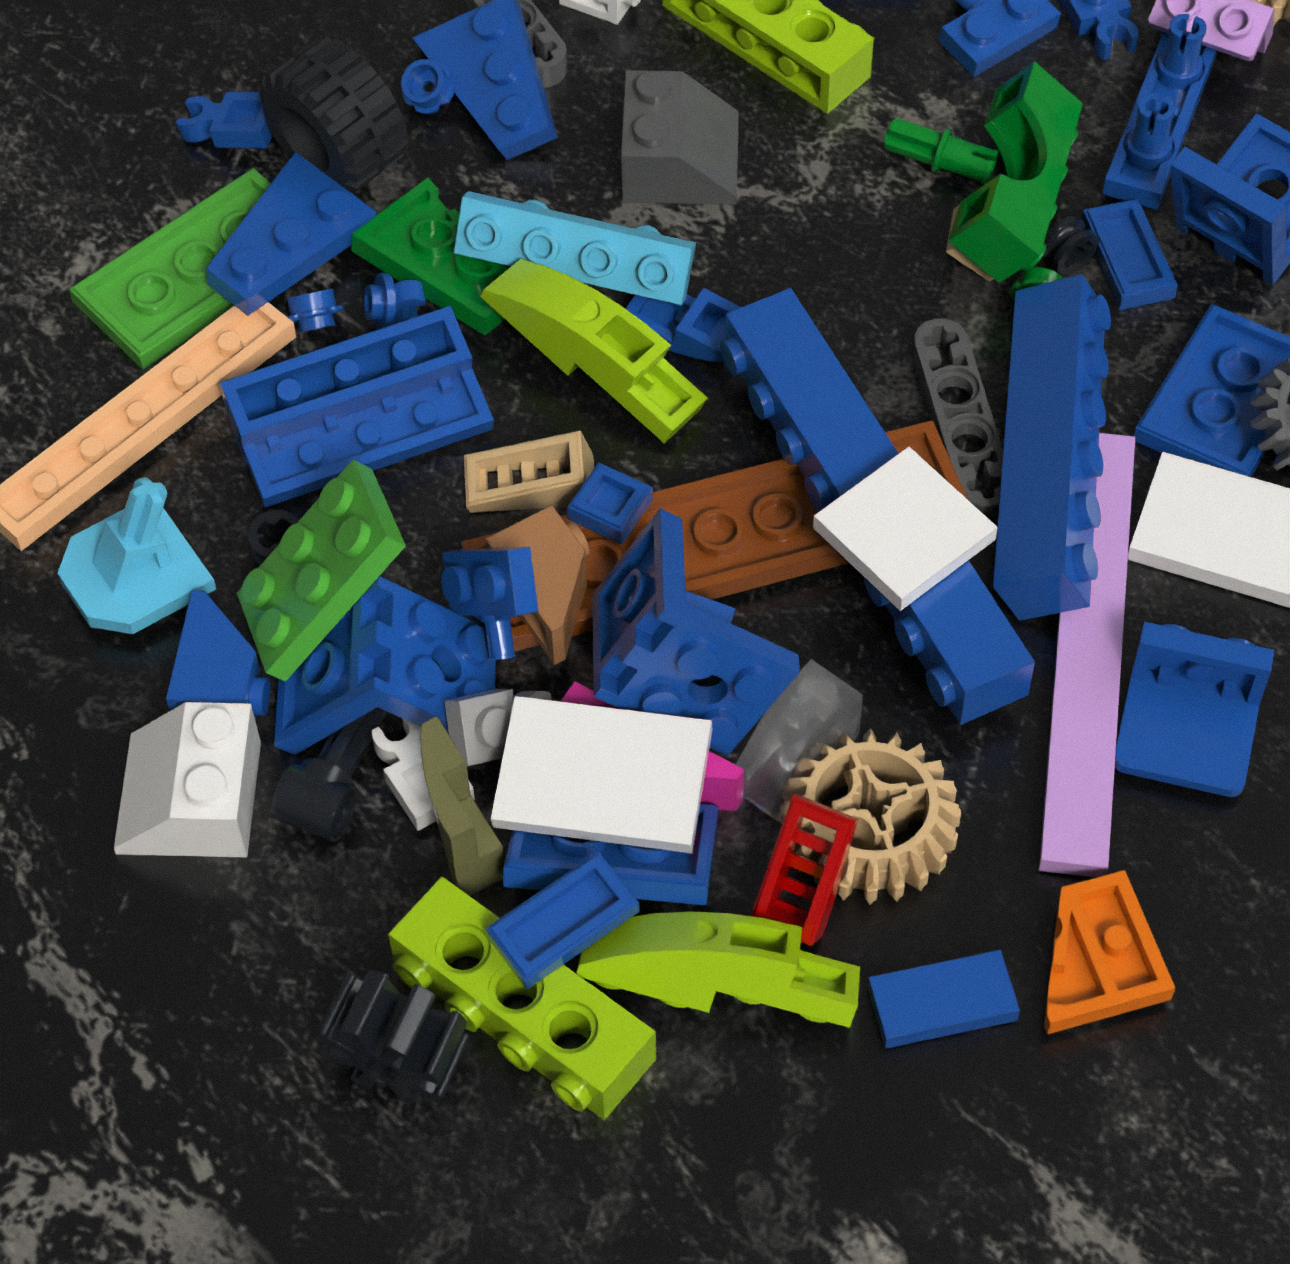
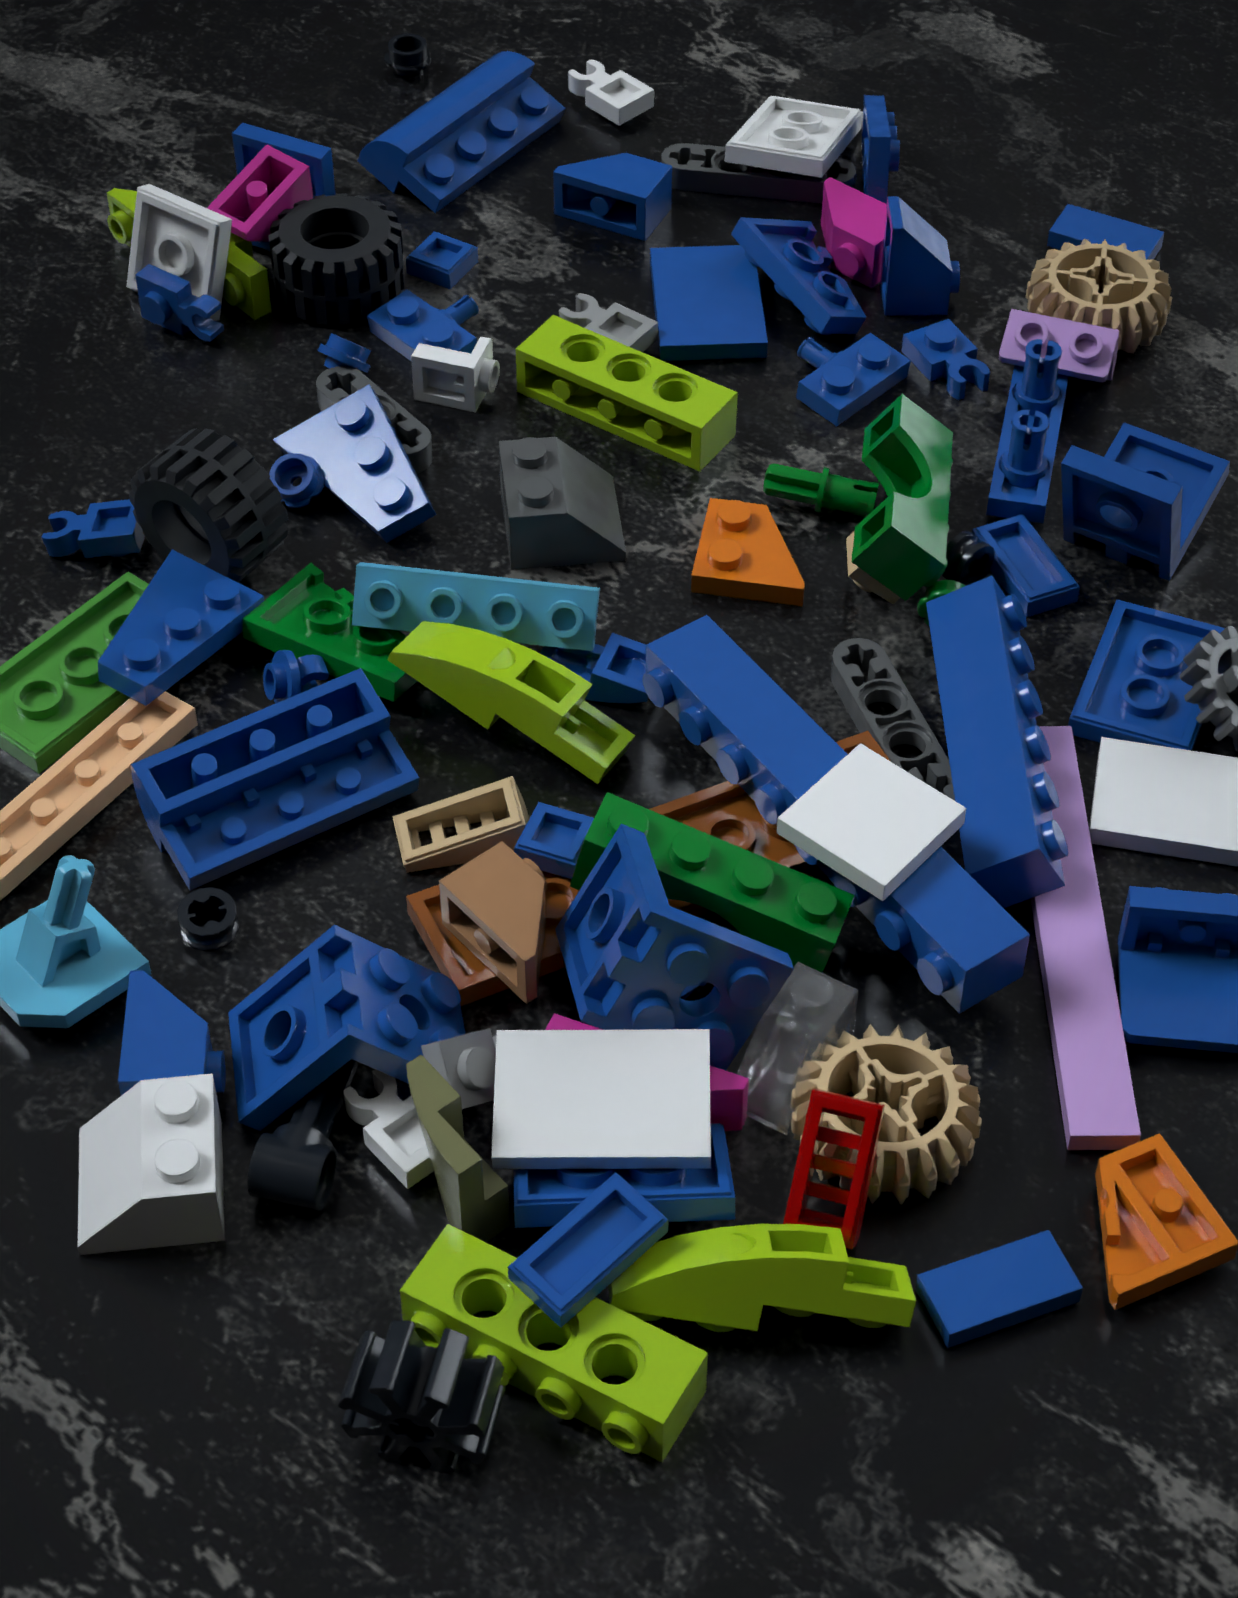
camera: 10 degrees left, 10 degrees down
(313, 310) = (213, 695): blue plate -> none
(319, 569) = (266, 933): bright green plate -> none
(493, 588) = (453, 930): blue plate -> none
(800, 598) = (740, 886): none -> green arch
(852, 213) = (745, 556): none -> orange wing

